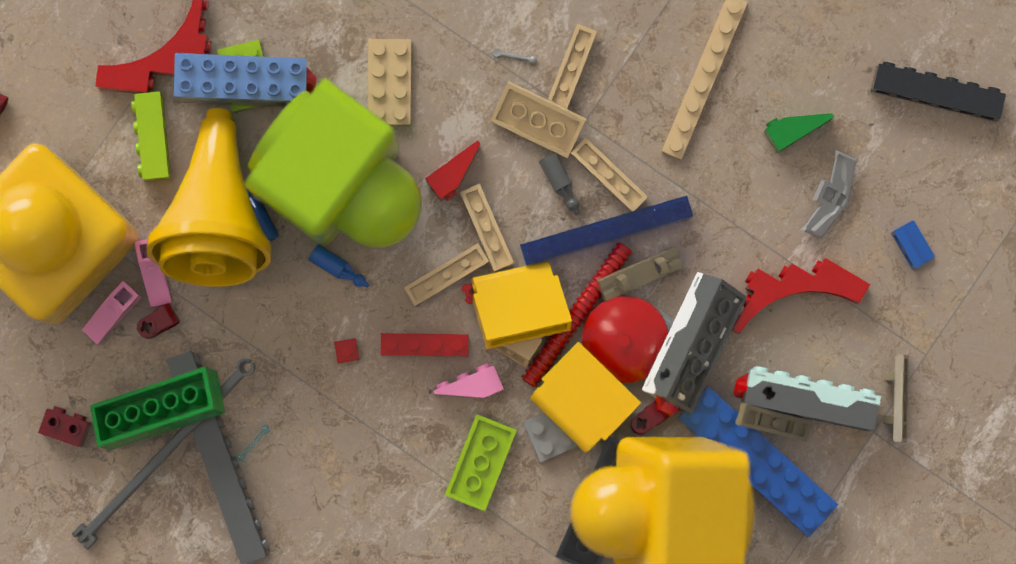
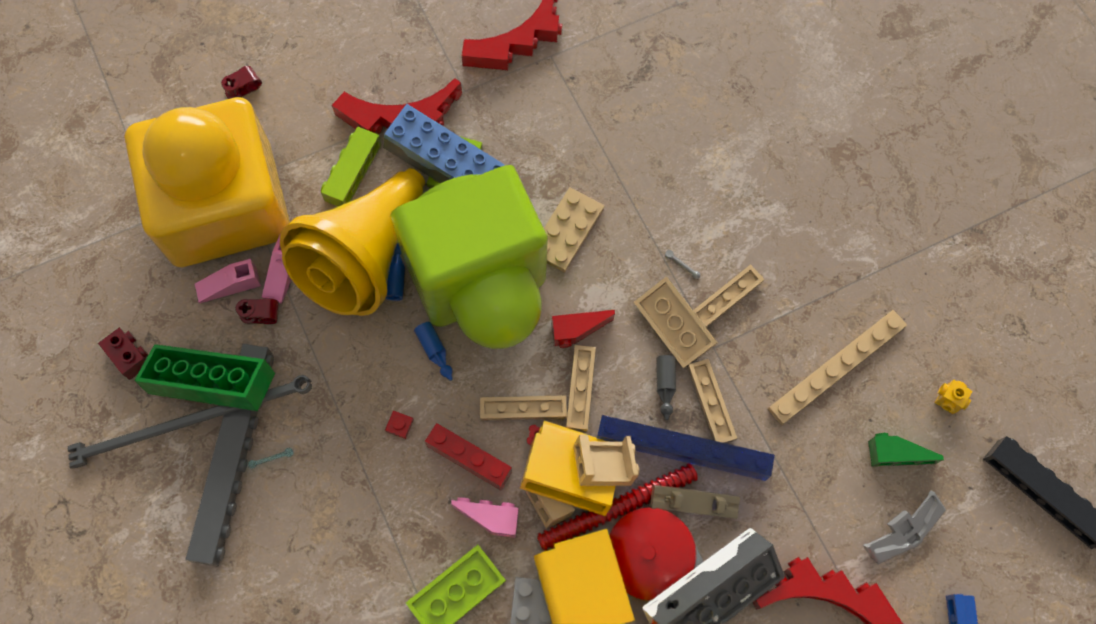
camera: 25 degrees right, 15 degrees down
(546, 285) = (605, 462): none -> tan panel
(813, 55) = (954, 396): none -> yellow brick

